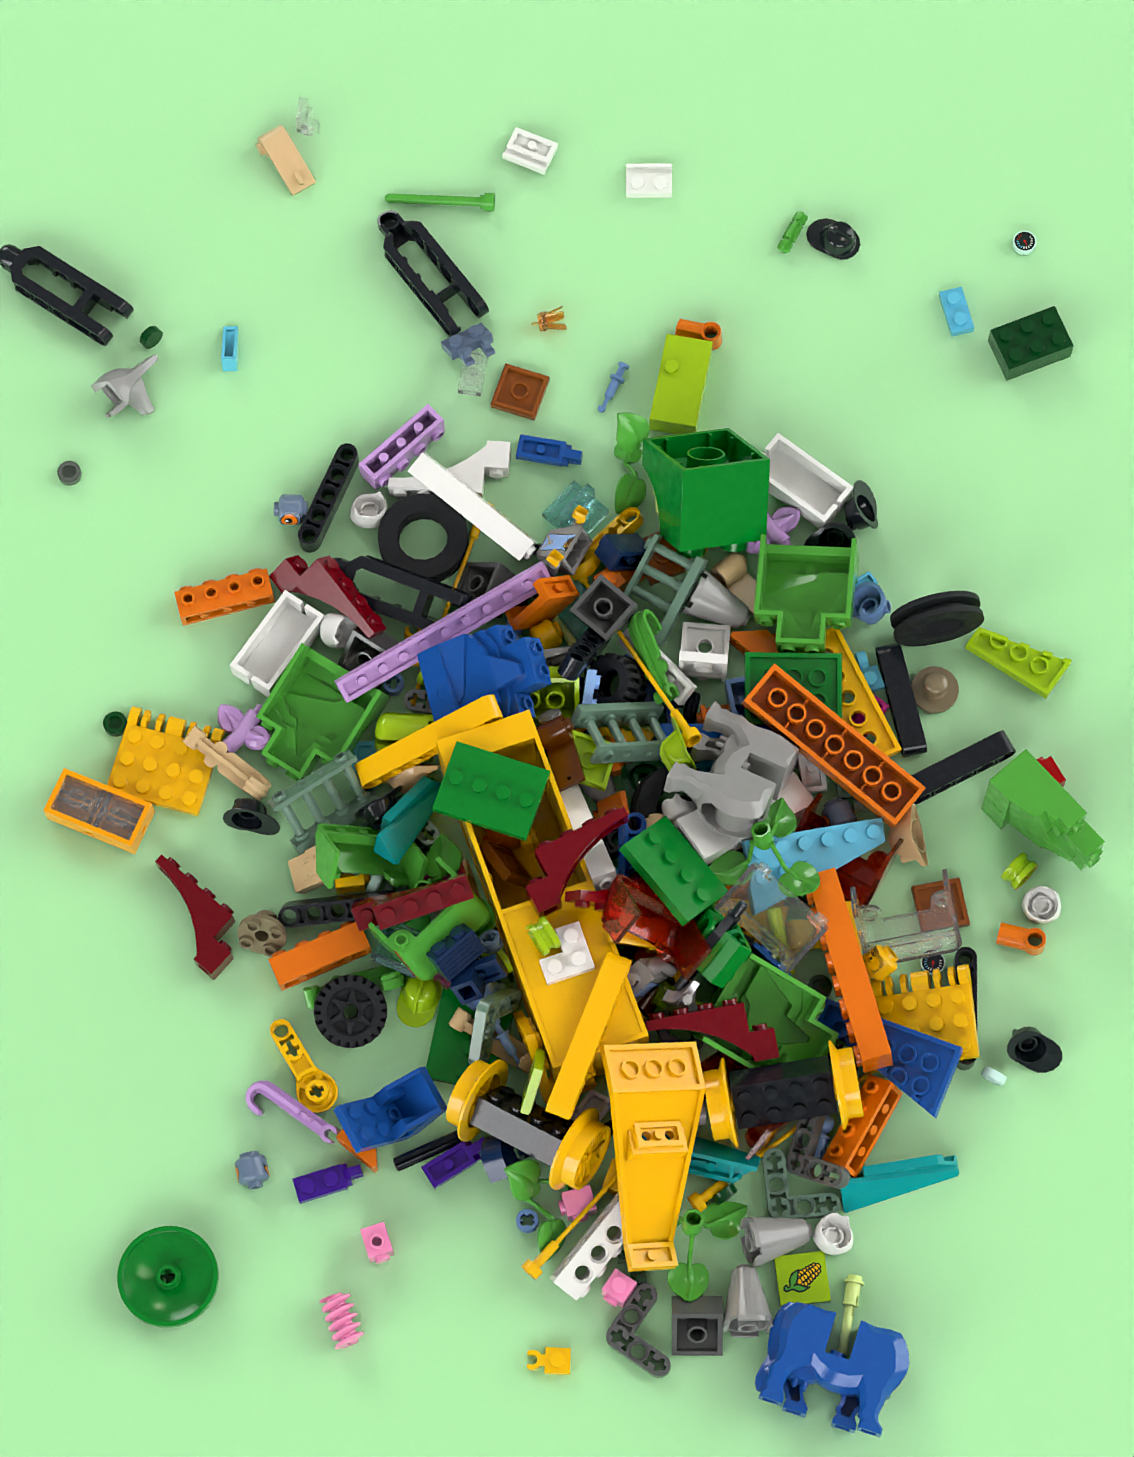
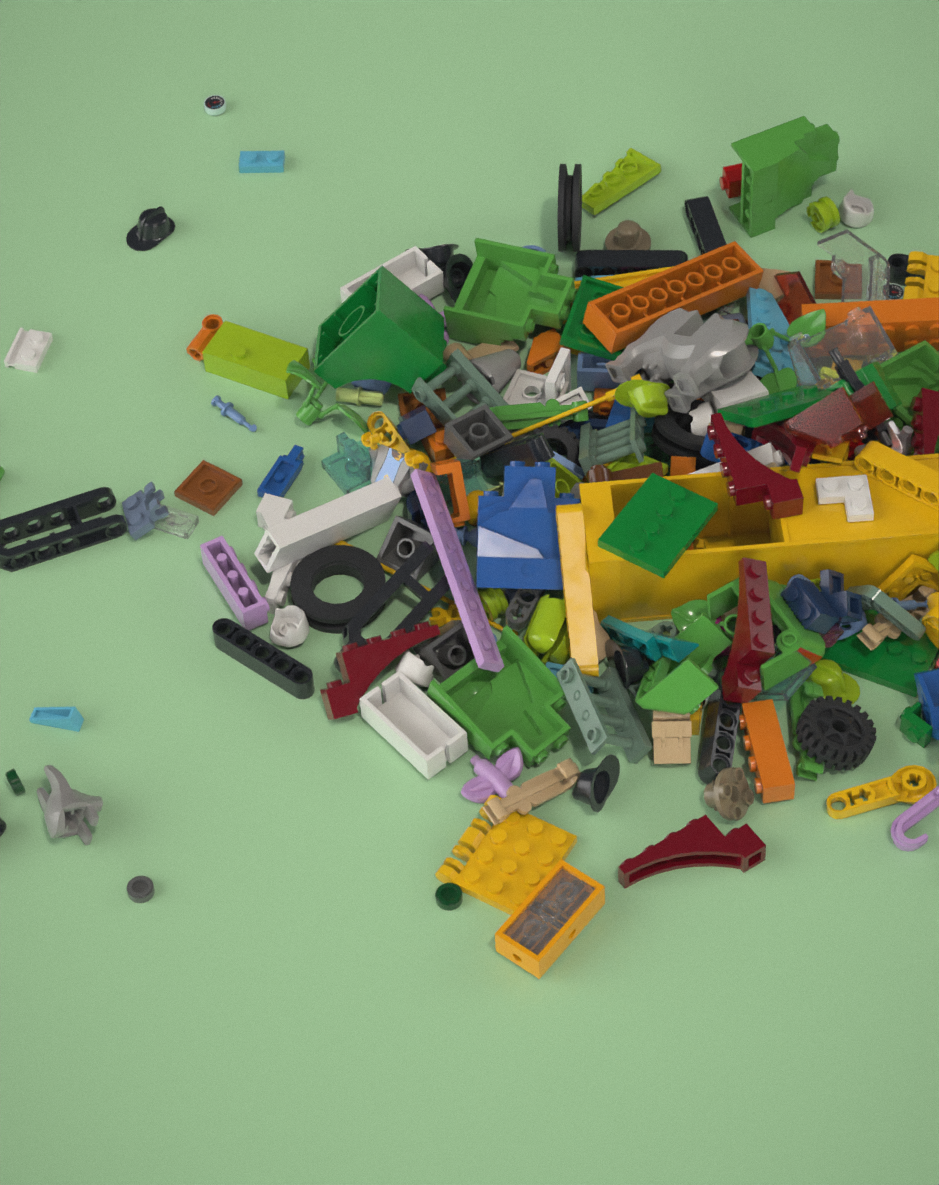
camera: 75 degrees left, 20 degrees down
(224, 596) = (340, 767): orange brick -> none
(291, 509) = (264, 691): sand blue head -> none
(378, 1081) = (914, 727): none -> green bracket
(543, 936) = (826, 503): lime wheel -> none
(546, 318) = (142, 452): clear orange piece -> none
(792, 232) = (132, 256): bright green axle -> none
(1018, 937) = (886, 227): orange piece -> none
(1030, 343) = (317, 114): dark green brick -> none

